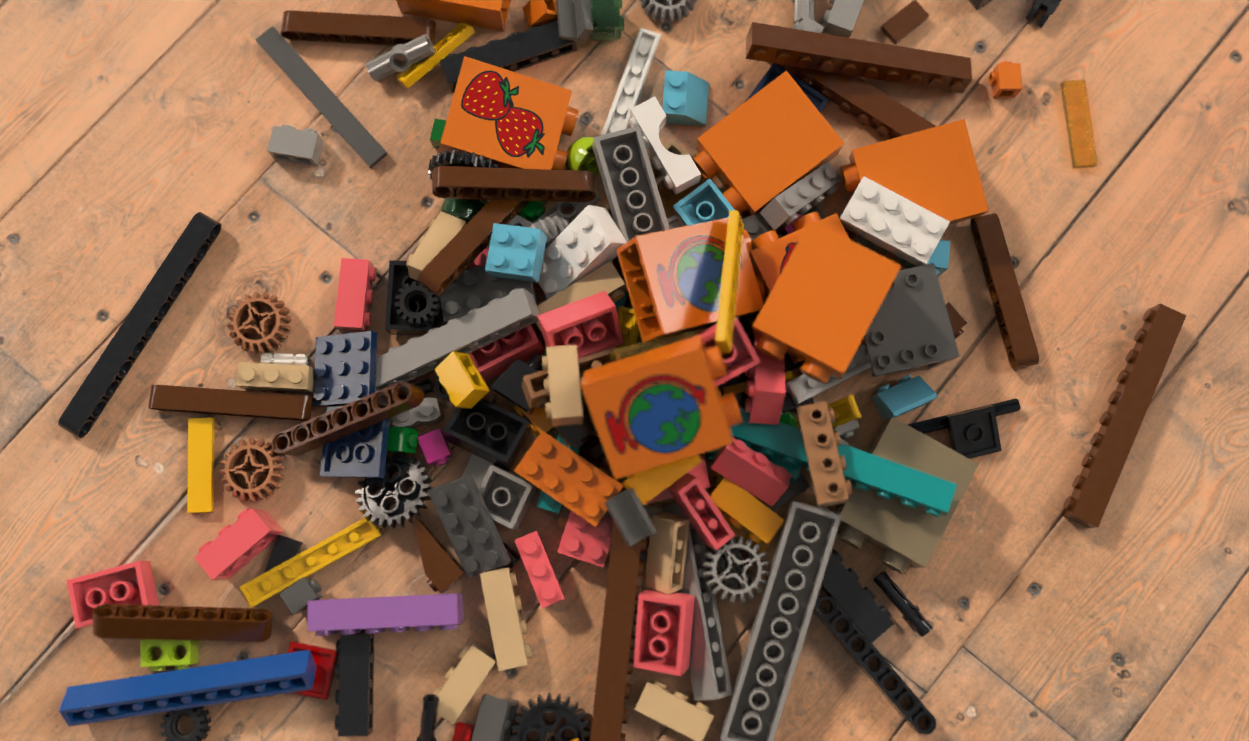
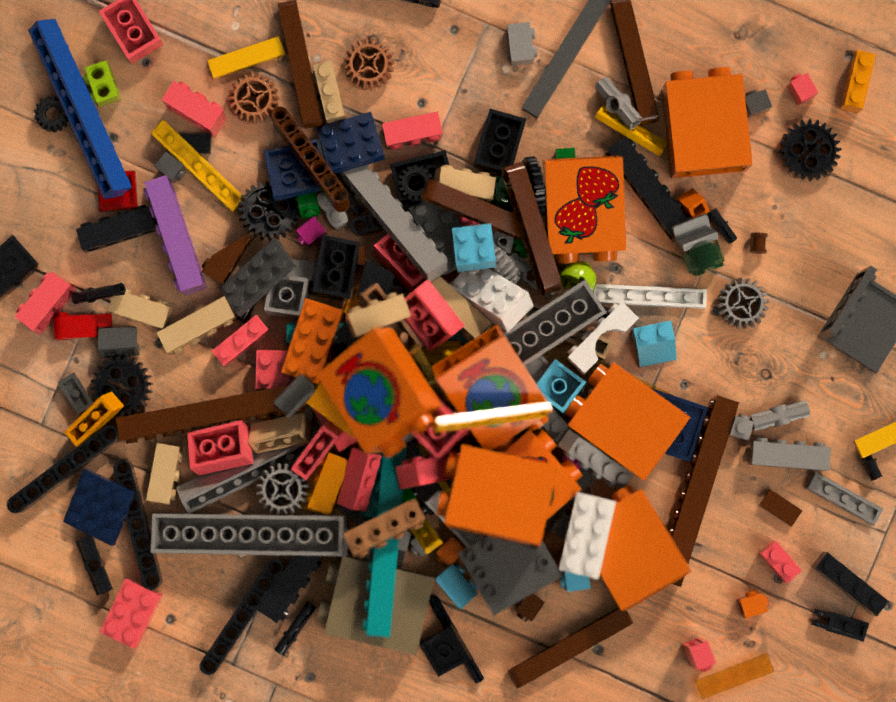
camera: 70 degrees right, 5 degrees up
(181, 623) = (124, 87): reddish brown beam -> none
(281, 358) = (345, 93): white axle -> none
(401, 199) = (499, 141): none -> black brick
(461, 380) = (365, 236): yellow brick -> none
(858, 58) = (728, 475): reddish brown brick -> none
(862, 392) = (448, 551): none -> orange brick
(966, 36) = (779, 561): none -> coral brick
(1053, 146) = (699, 654): none -> coral brick

